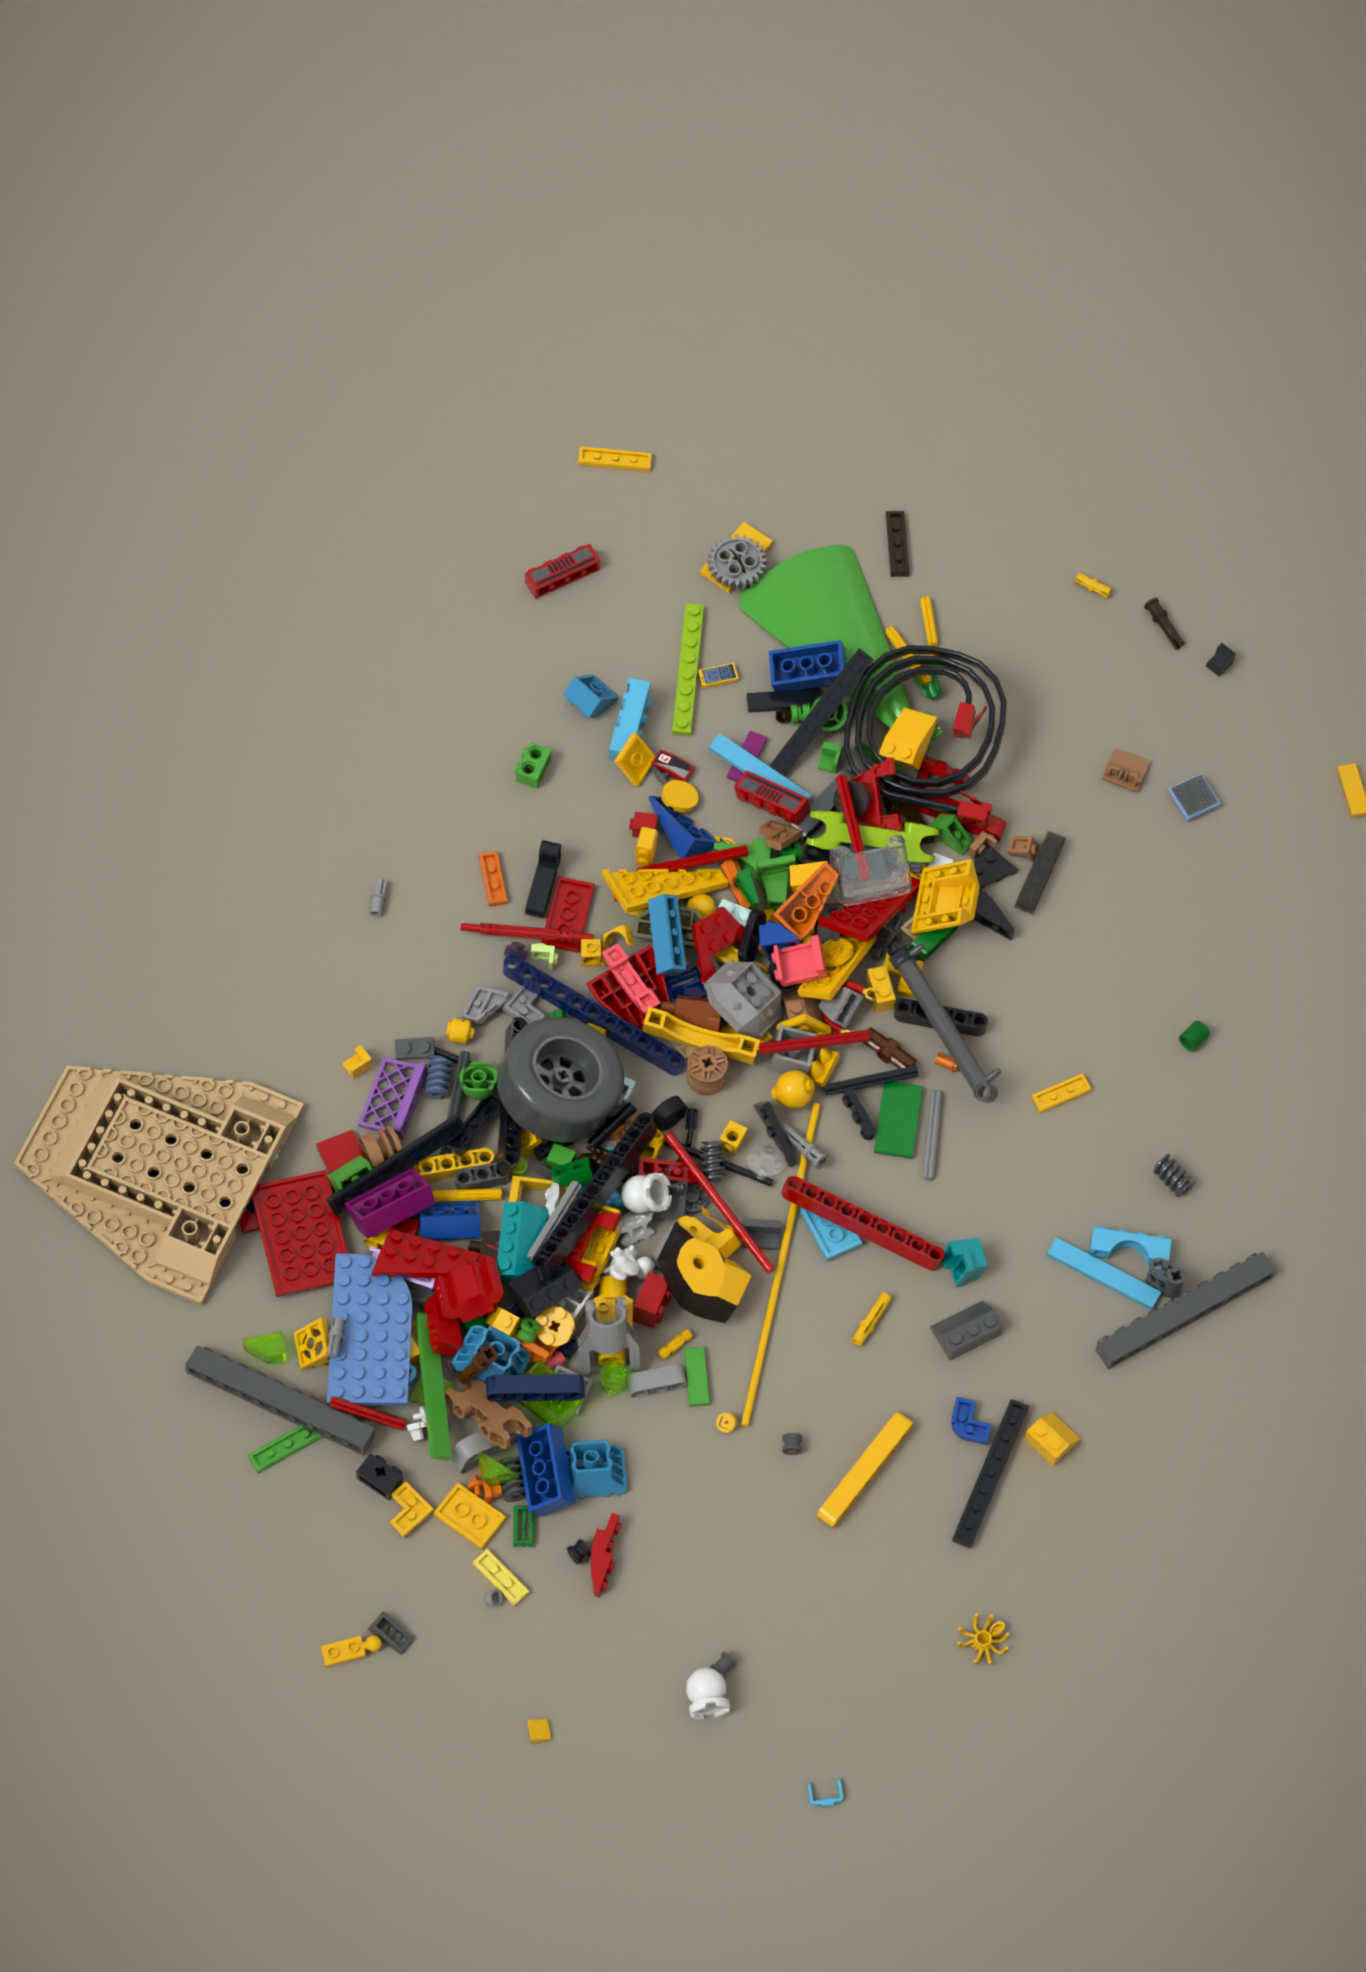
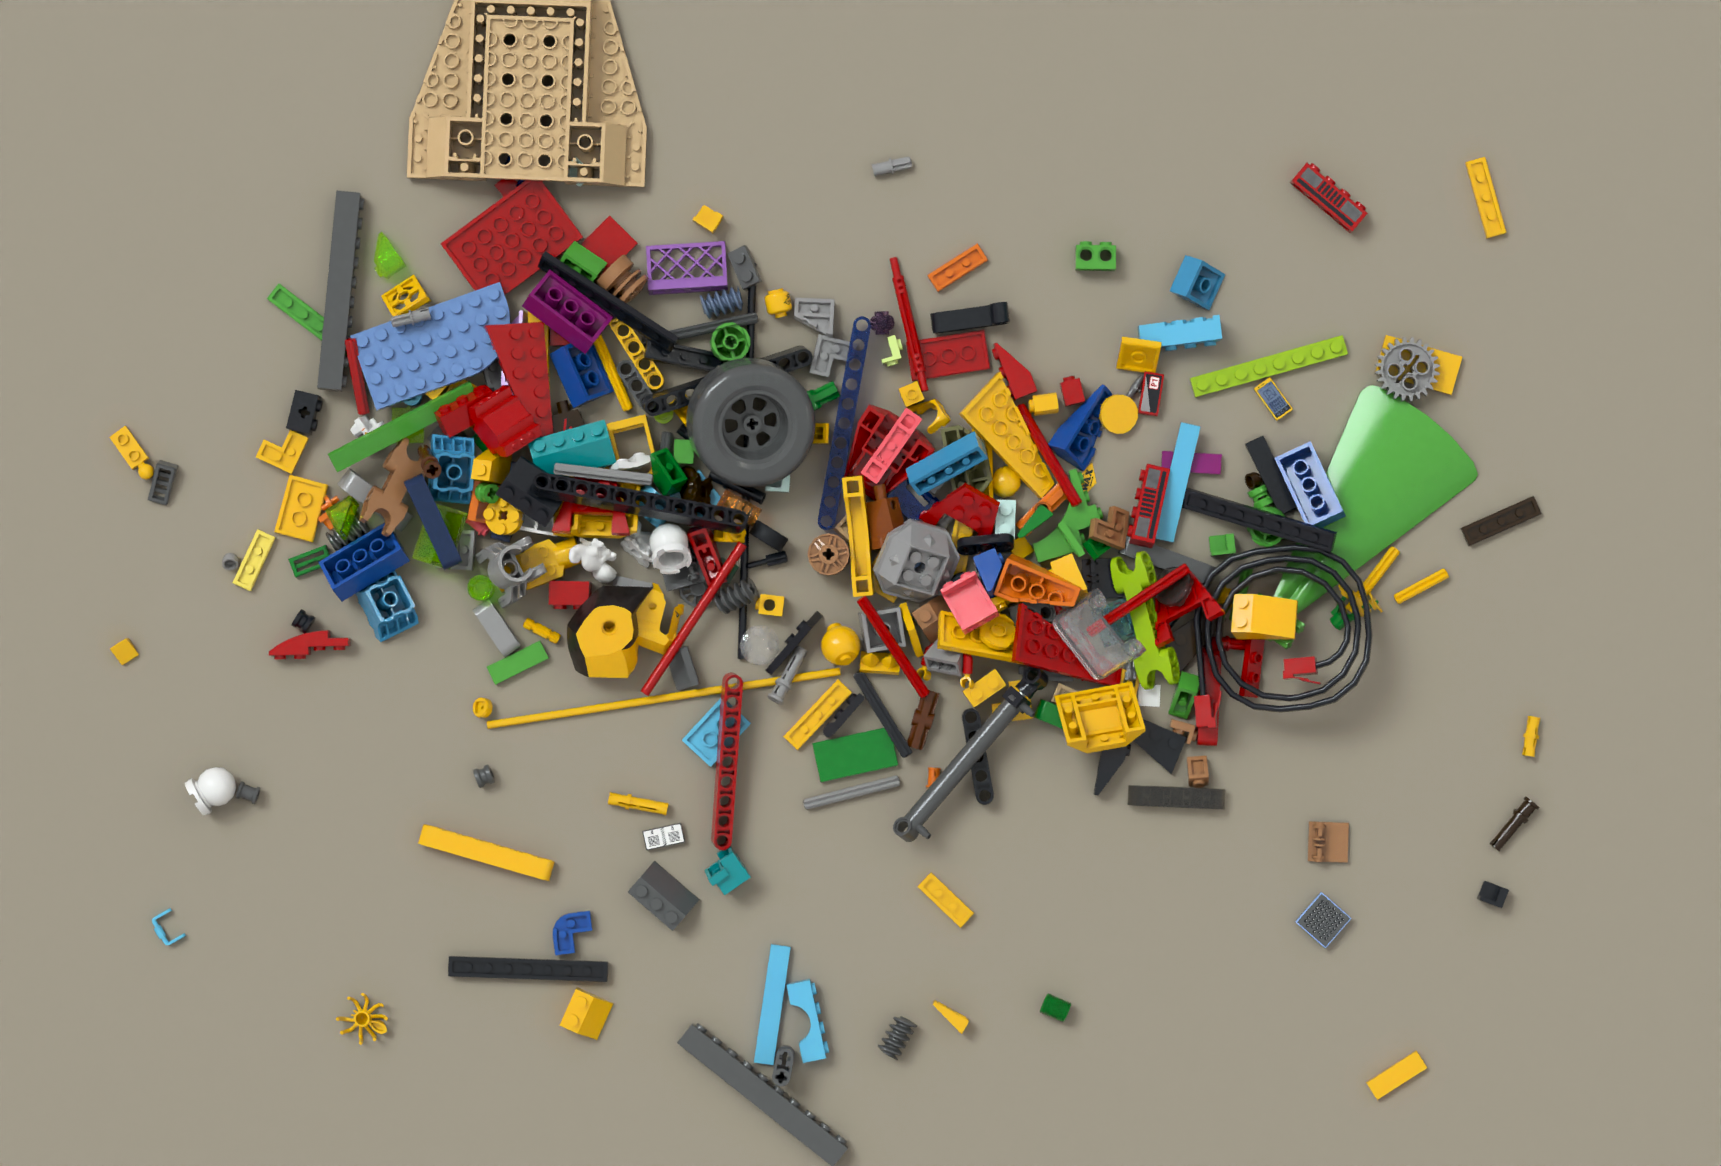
camera: 75 degrees right, 25 degrees up
(612, 859) = (1018, 377): none -> red slope
(849, 1138) = (817, 714): none -> yellow tile
(910, 1309) = (663, 836): none -> white tile
(1172, 1123) = (955, 1018): none -> yellow slope

